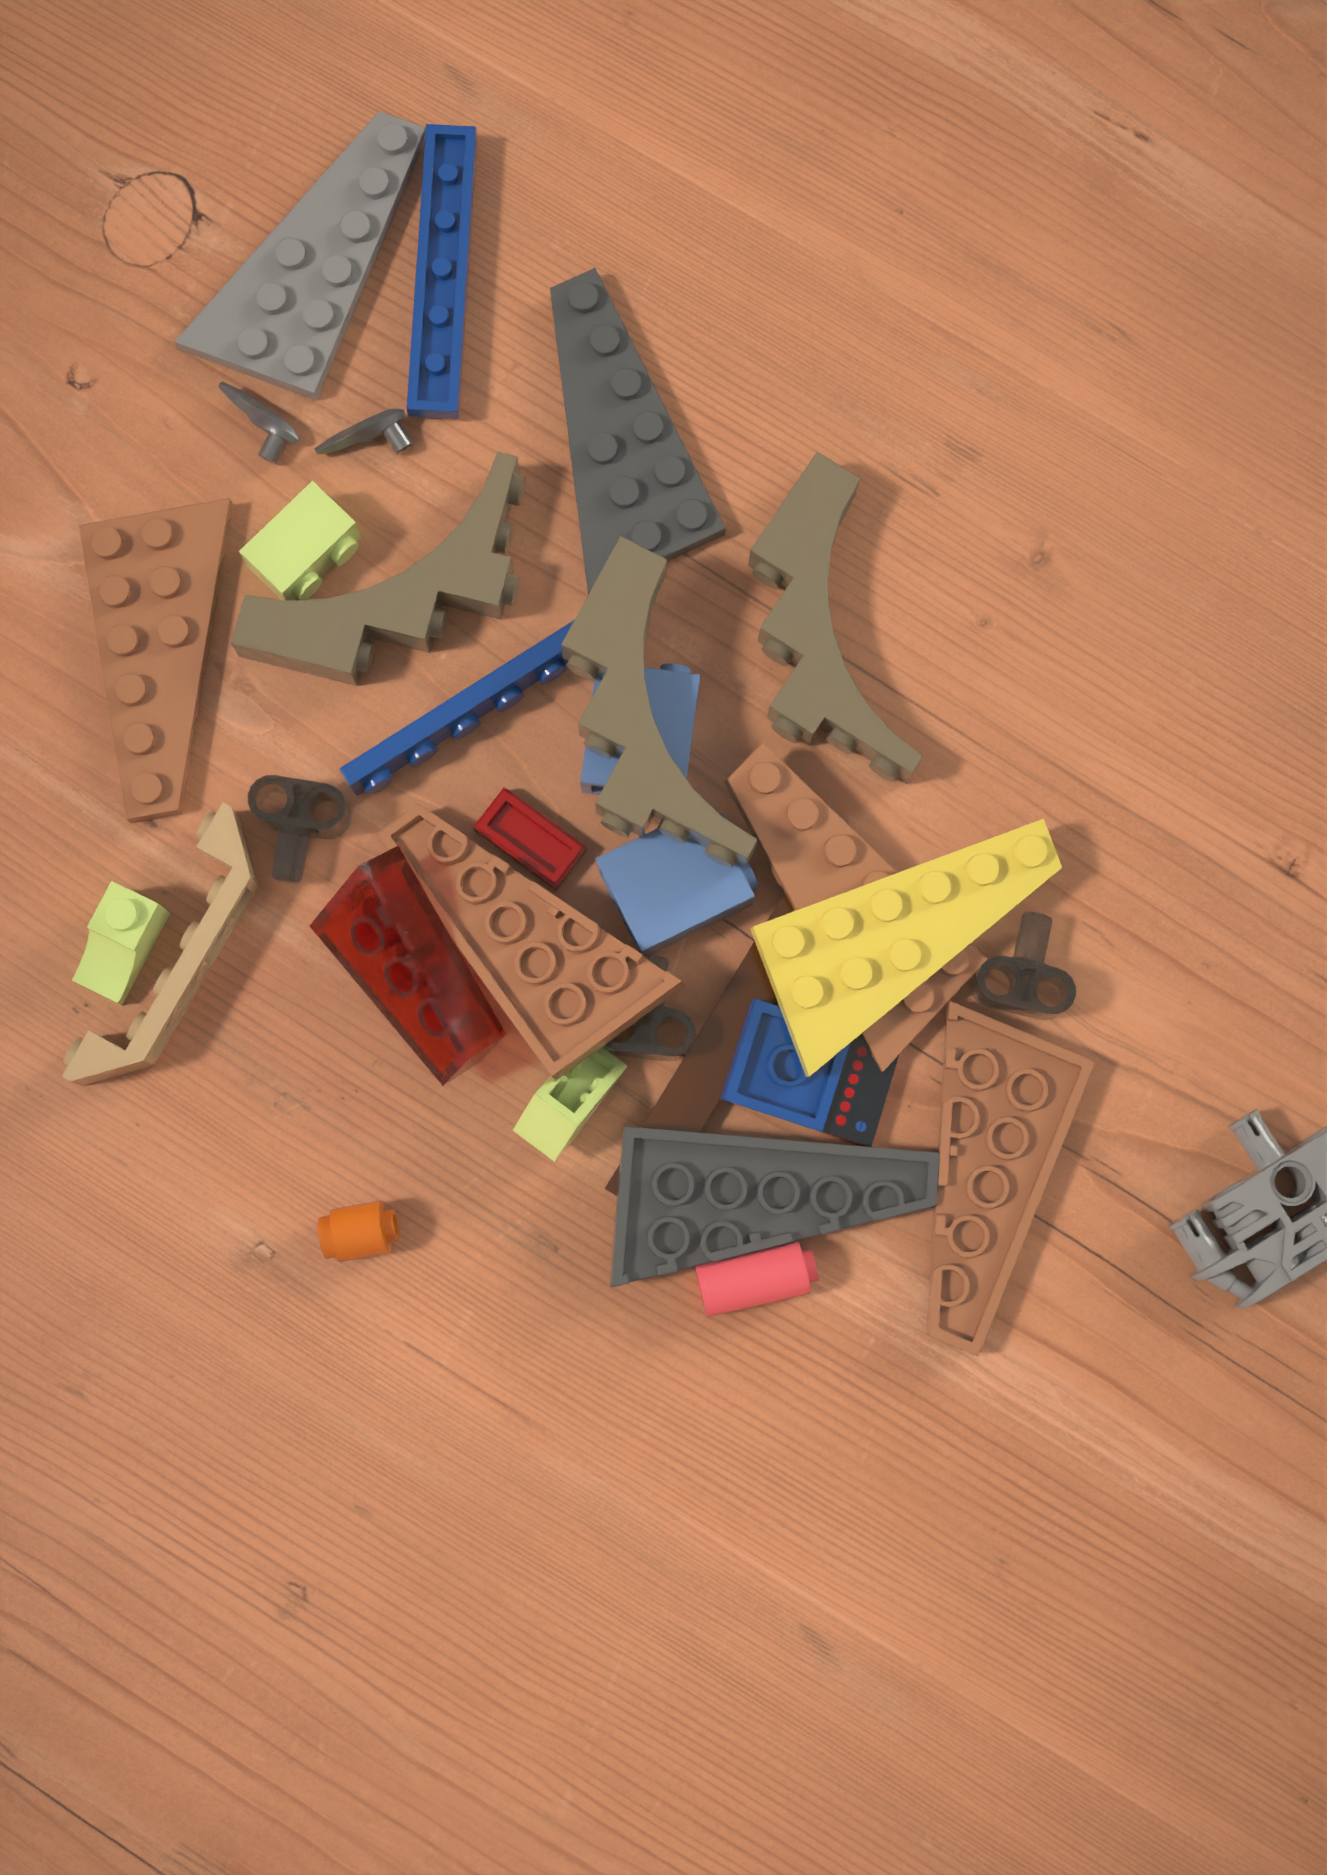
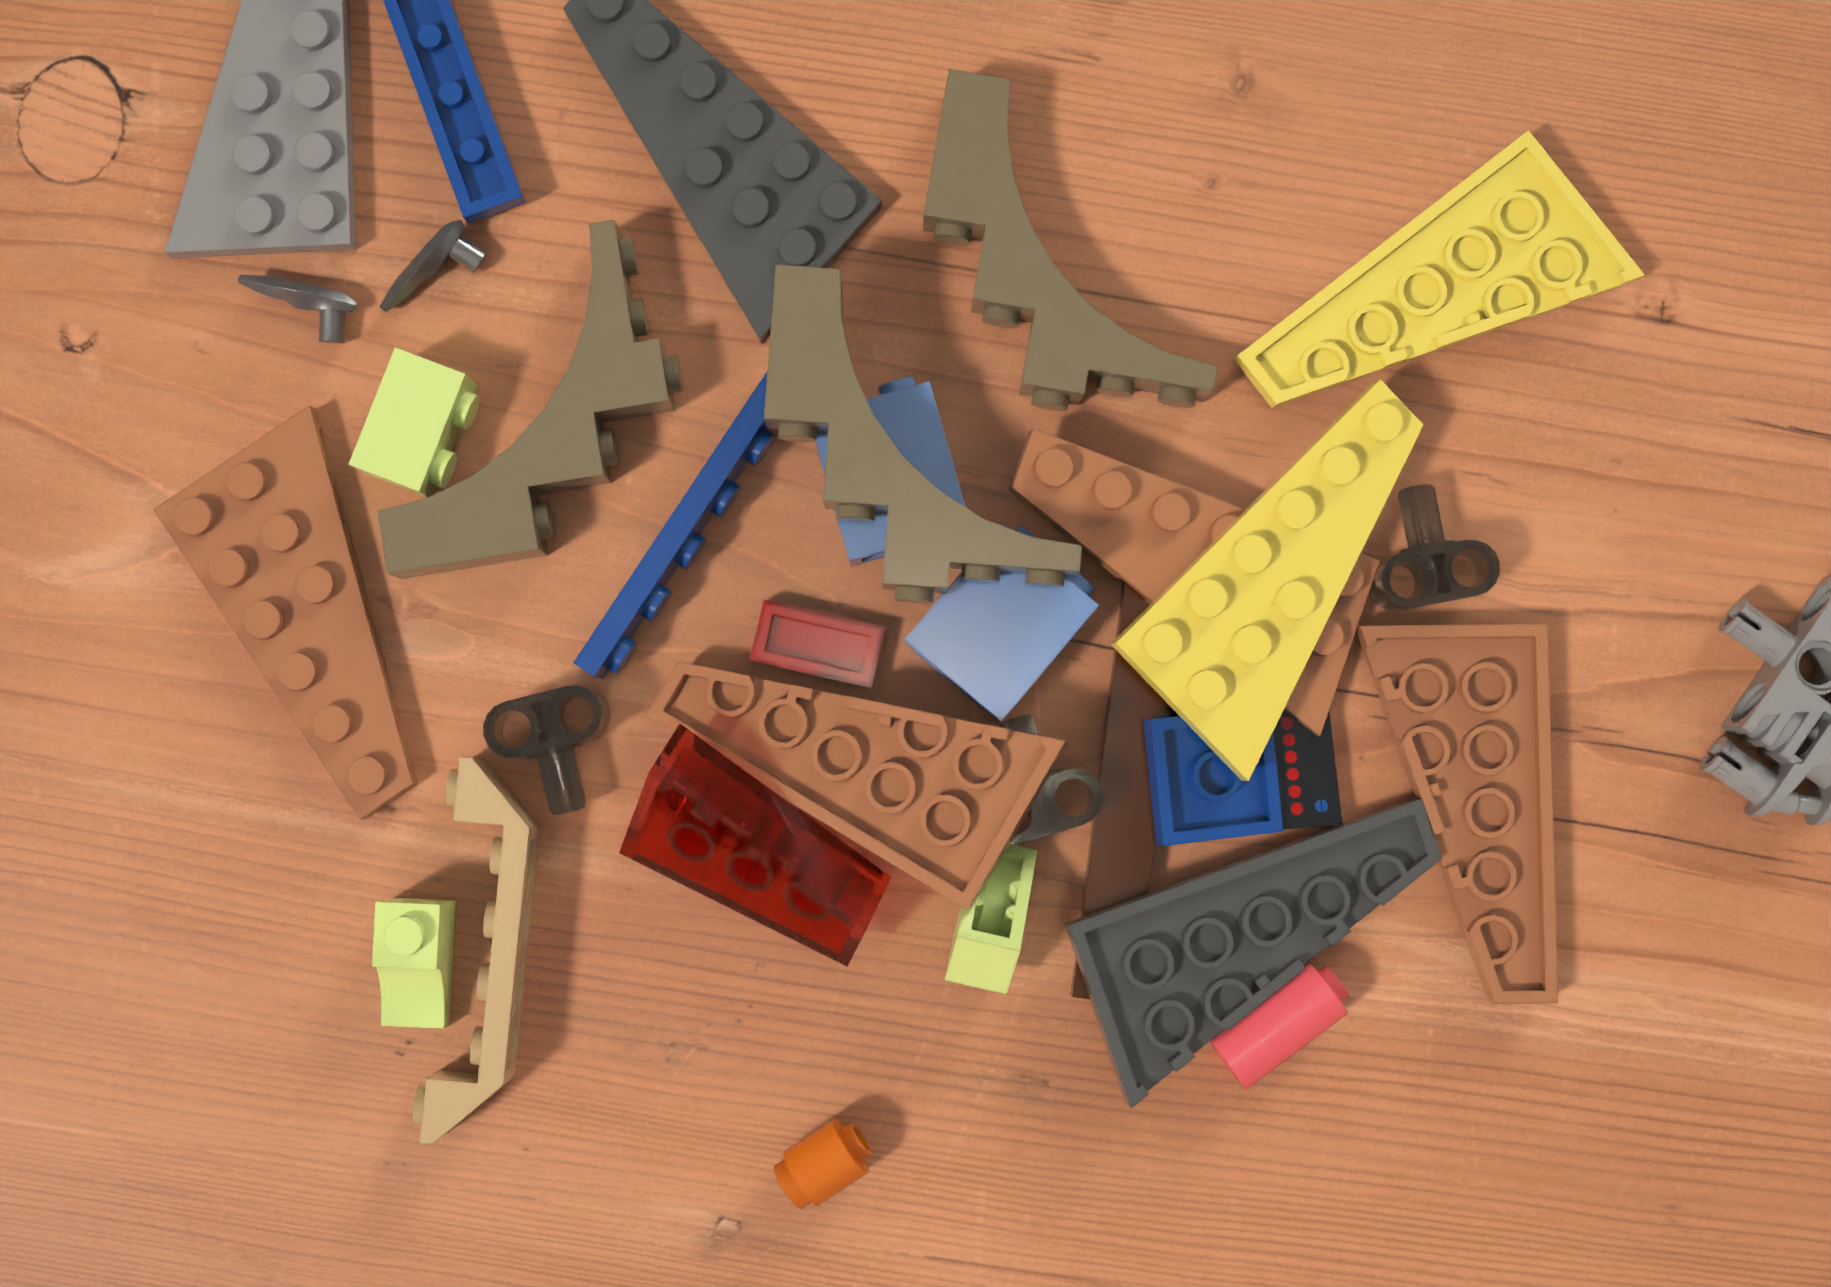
camera: 25 degrees left, 5 degrees up
(1153, 765) = (1473, 262): none -> light yellow wing

